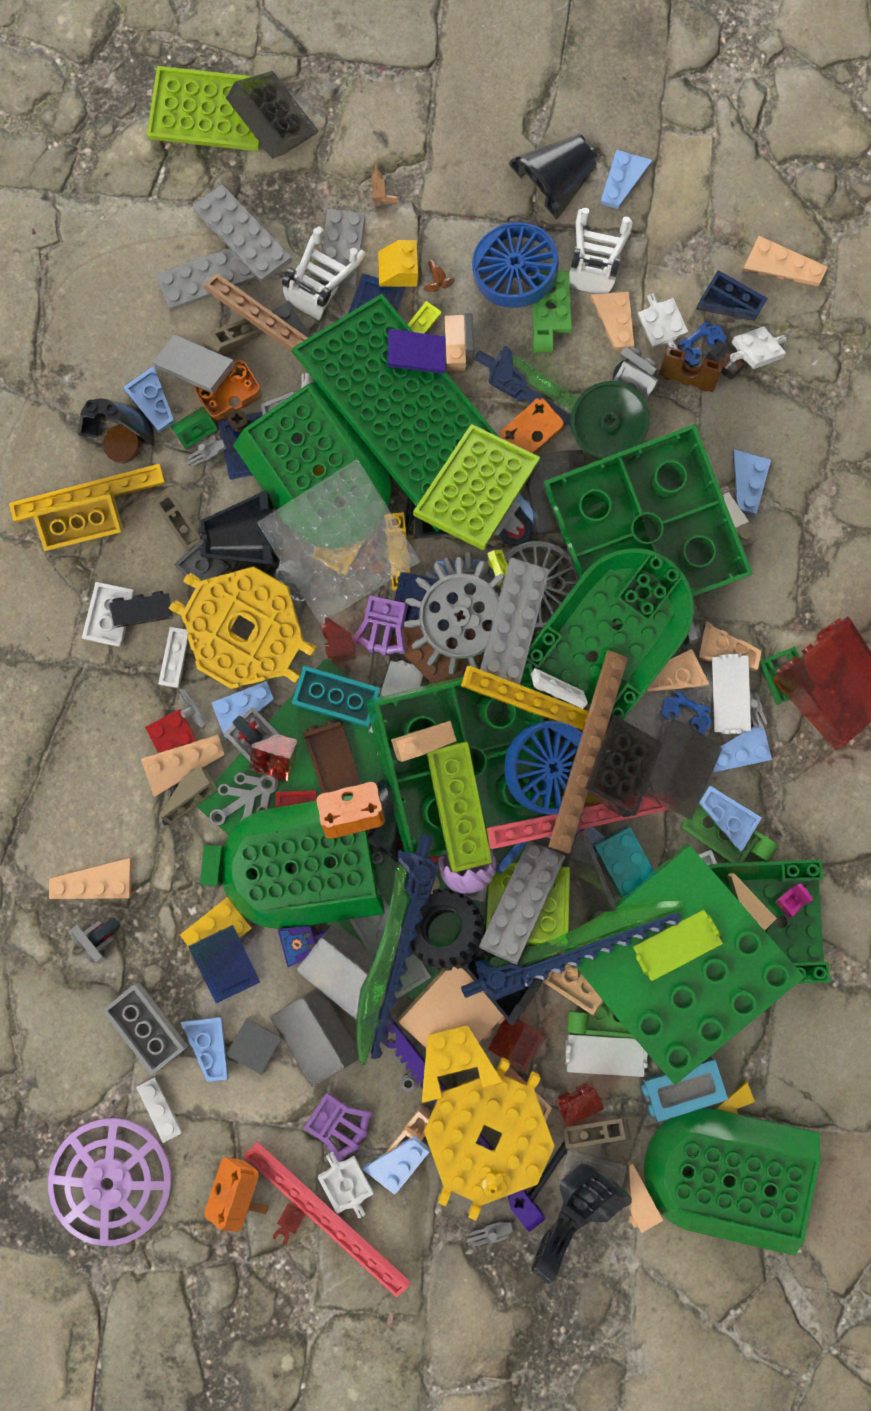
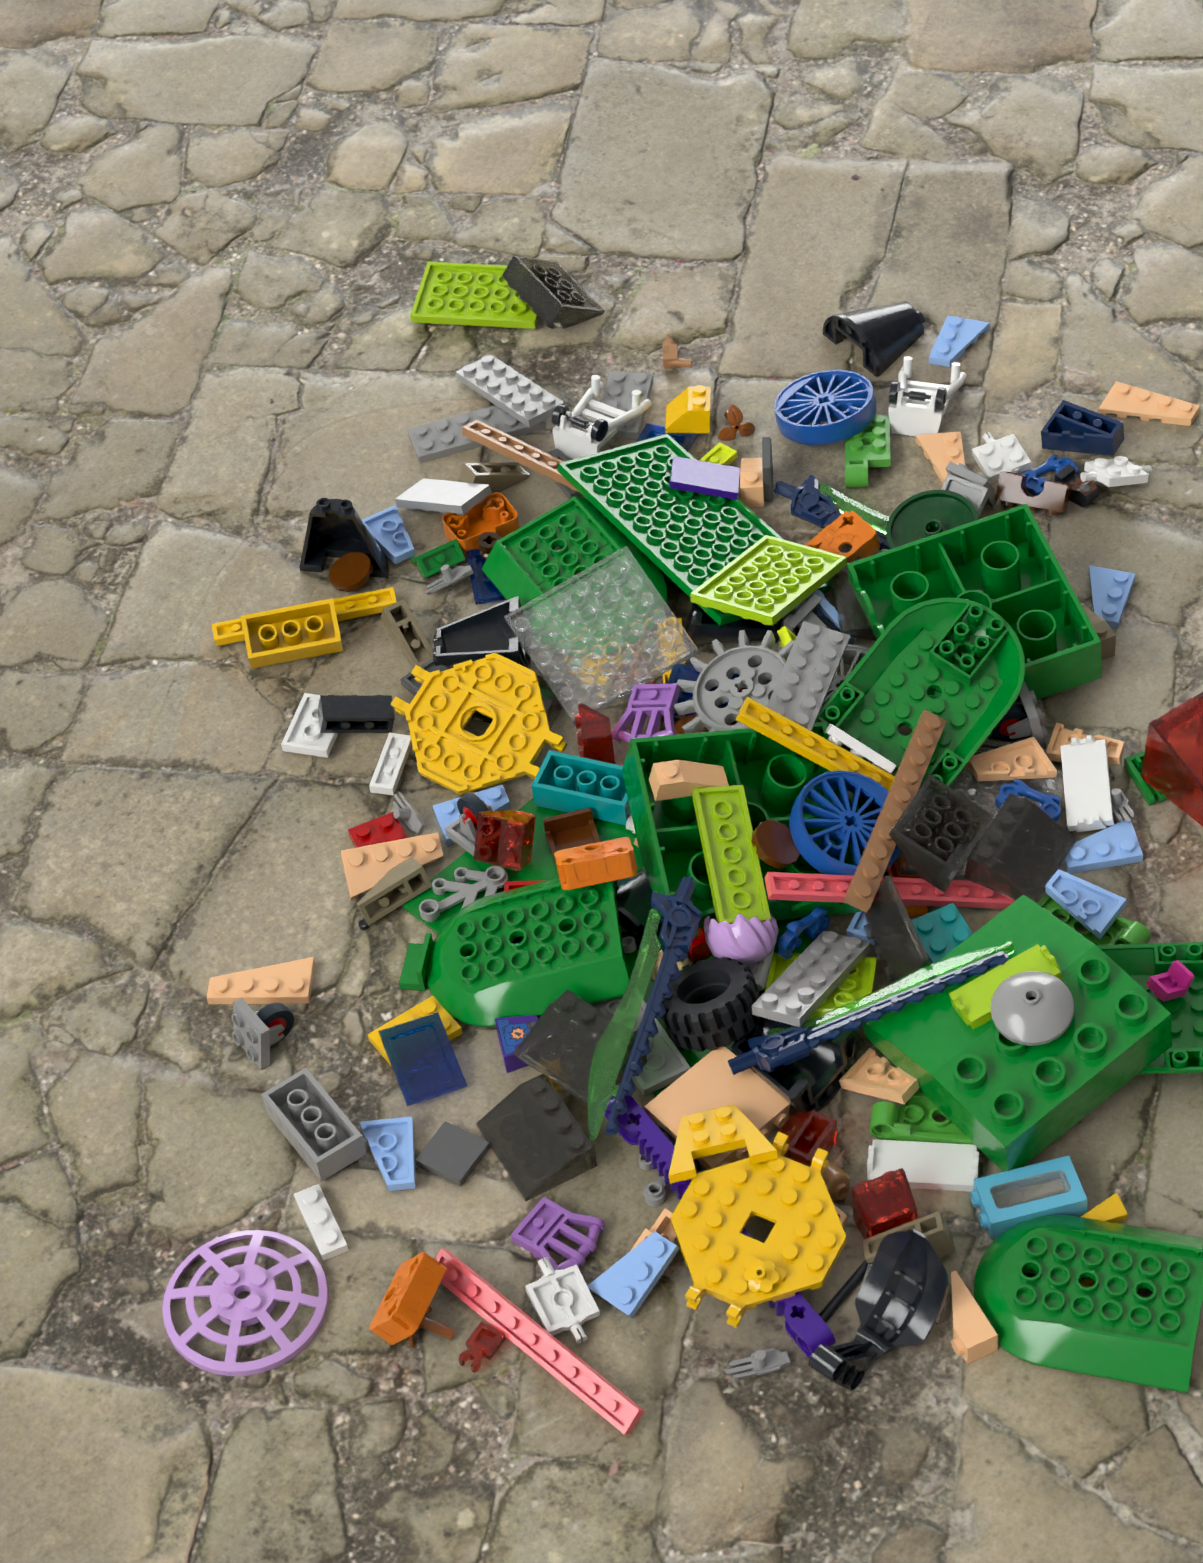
camera: 10 degrees right, 35 degrees down
(493, 793) = (775, 844): none -> reddish brown tile
(544, 1072) = (836, 1181): none -> medium nougat head
(691, 966) = (1032, 1020): none -> light grey dish

